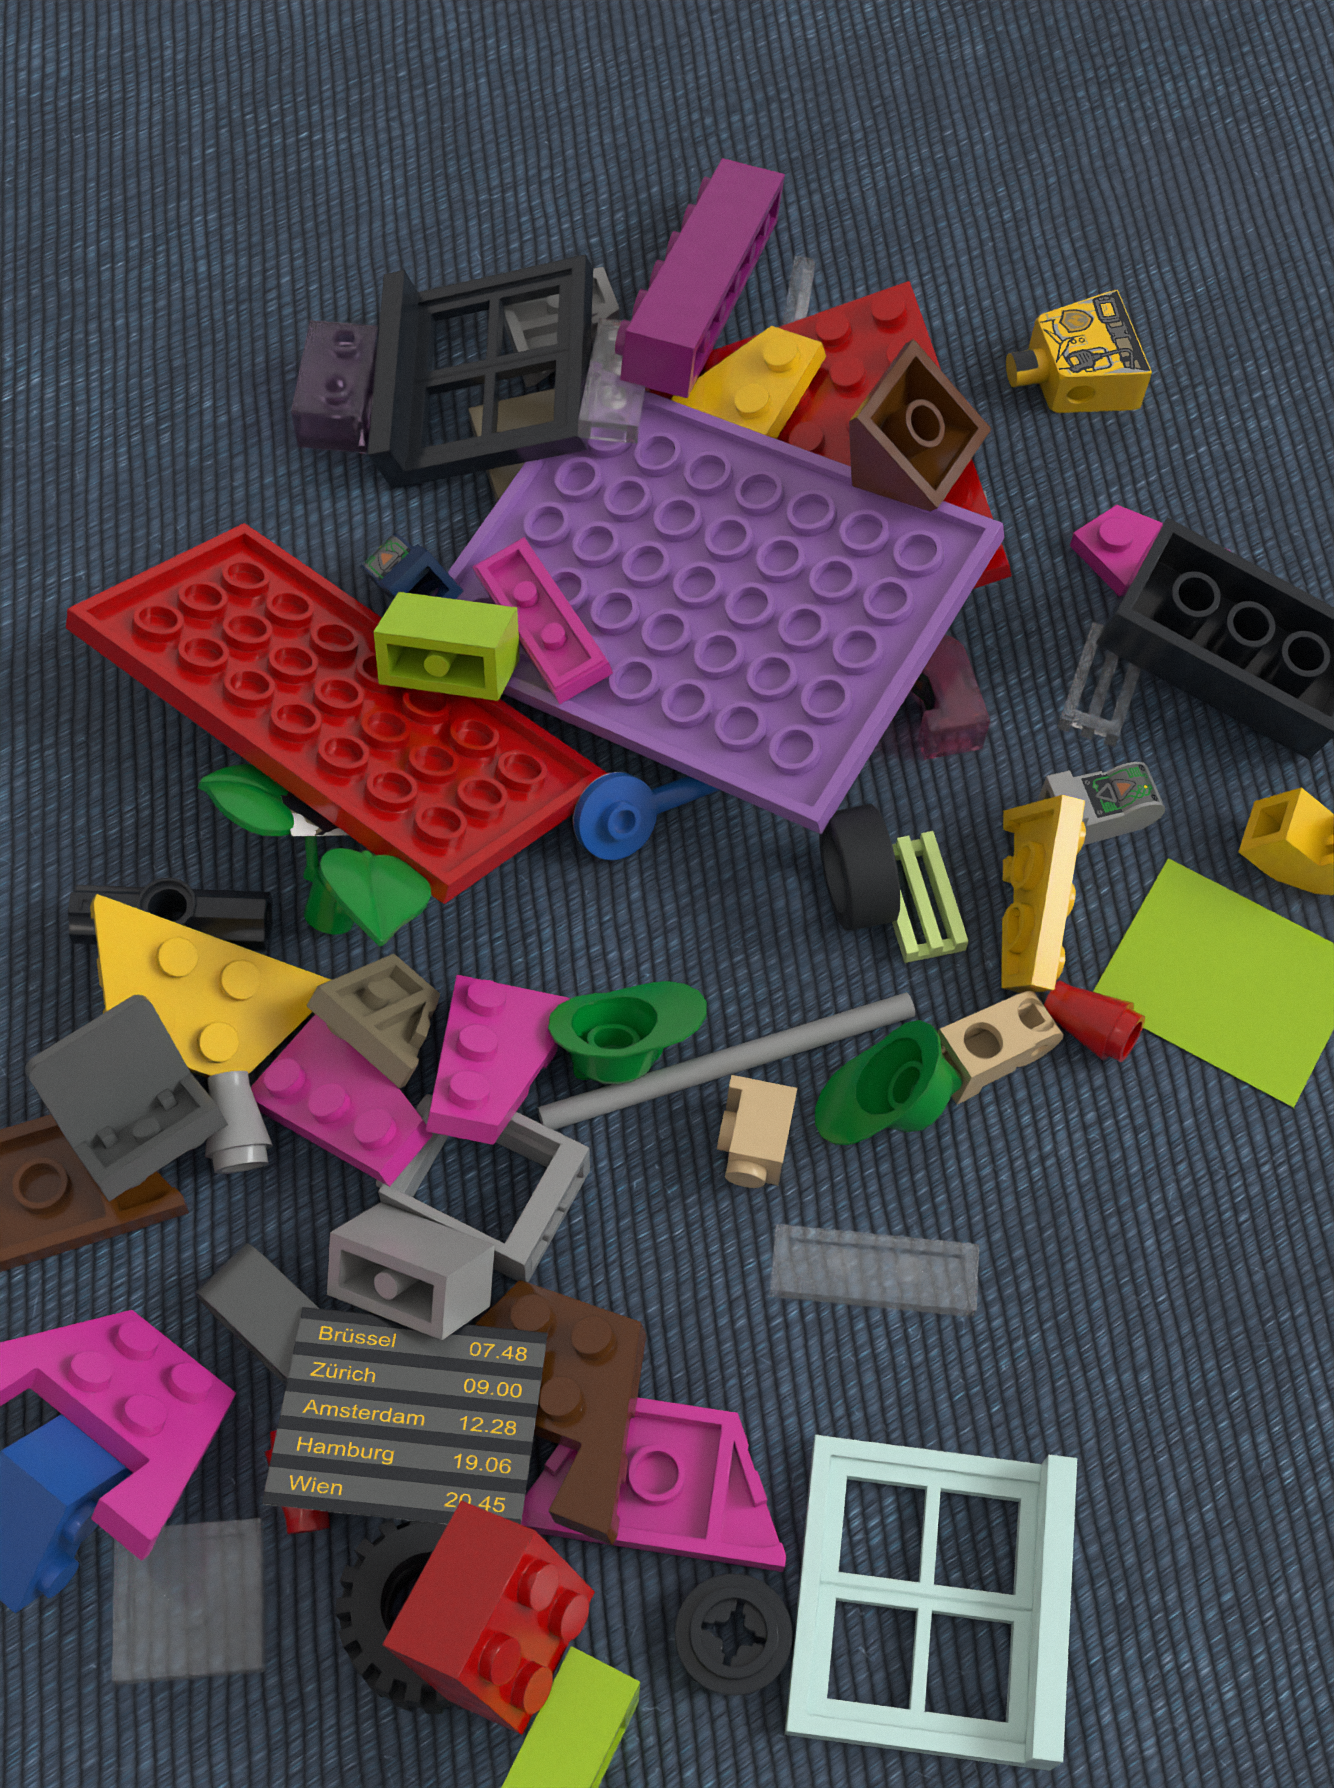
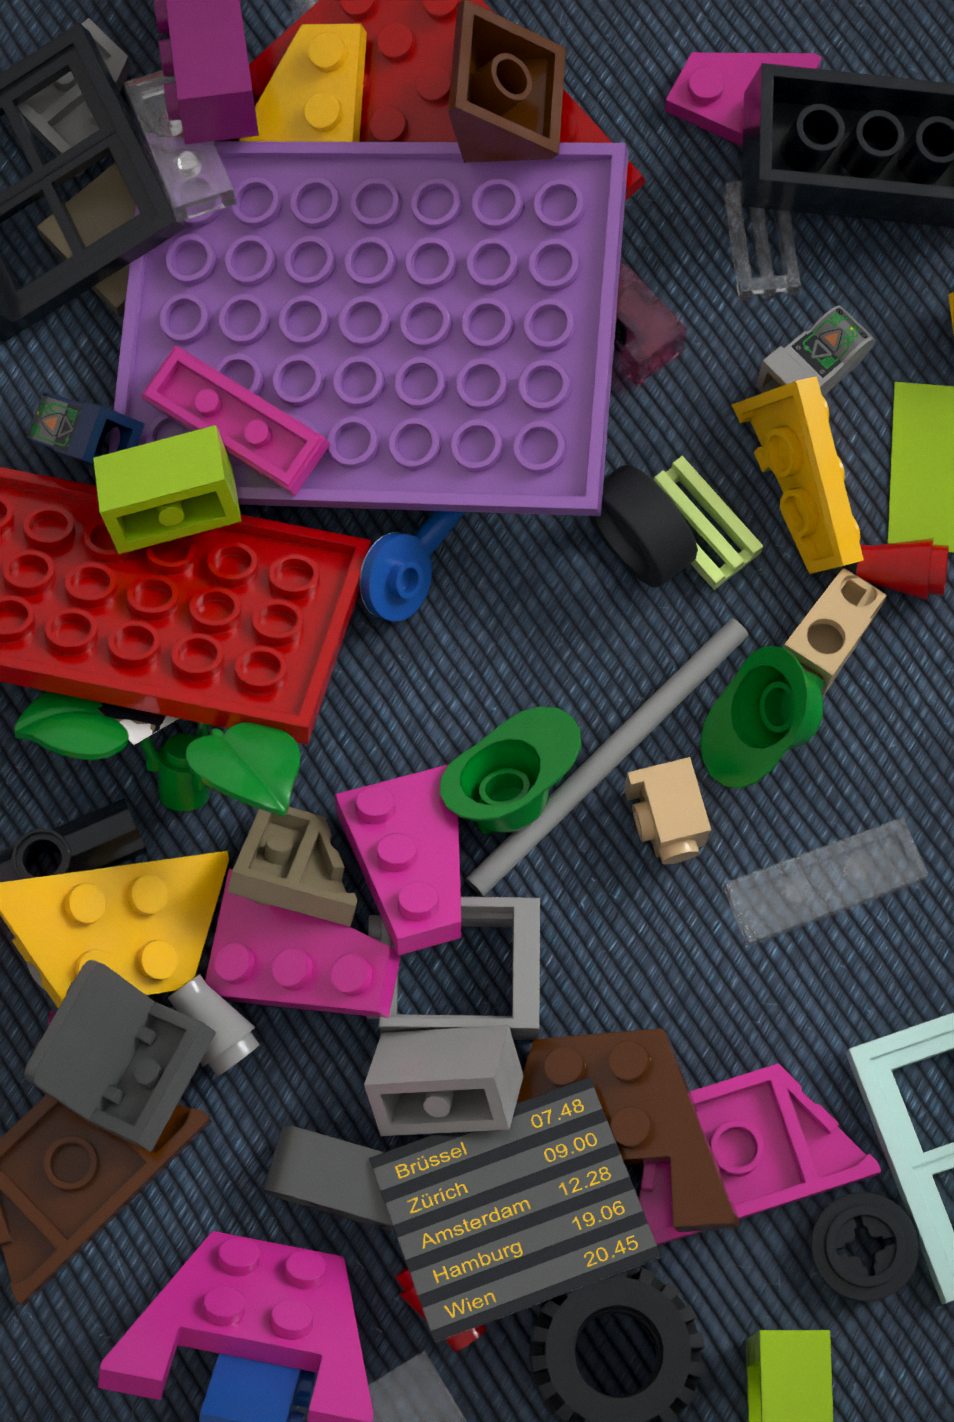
camera: 25 degrees left, 10 degrees up
(491, 1617) = (692, 1342): red brick -> none

